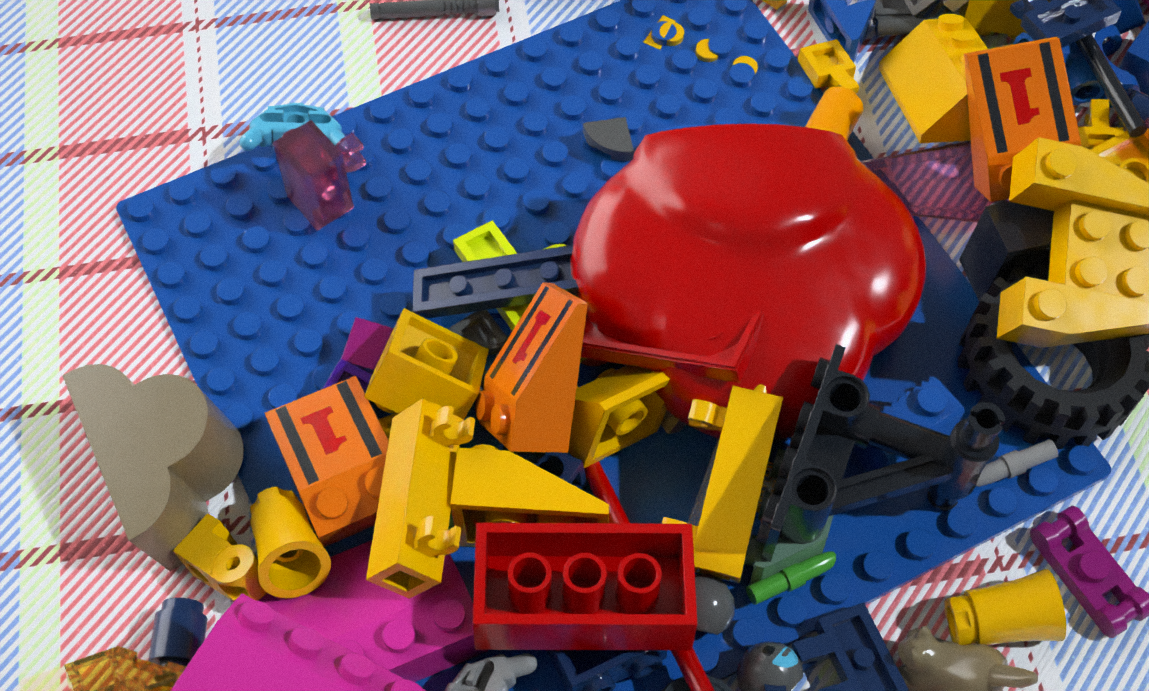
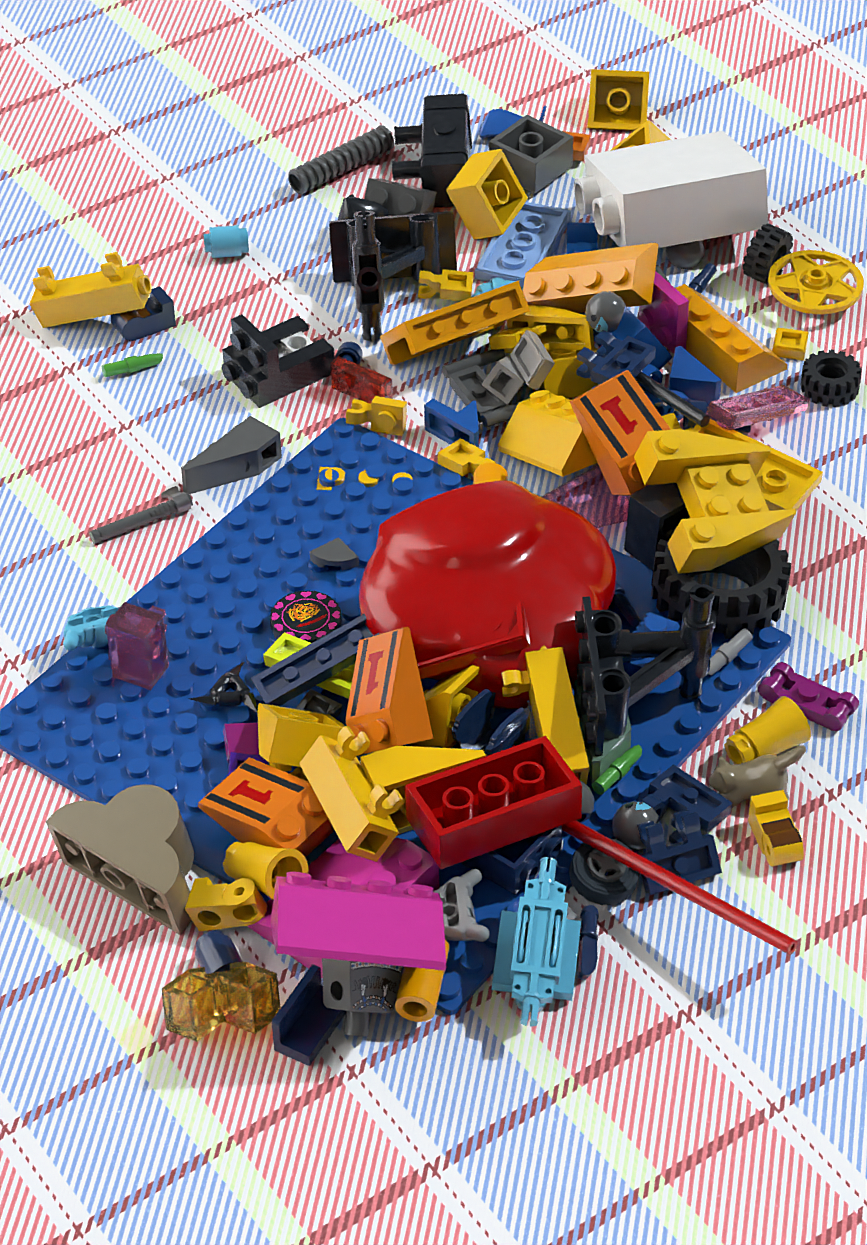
camera: 25 degrees left, 15 degrees down
(381, 268) = (229, 680): none -> black piece
(533, 209) = (305, 615): none -> black tile
(643, 451) = (474, 730): none -> dark blue piece
(918, 339) = (625, 606): none -> dark blue piece

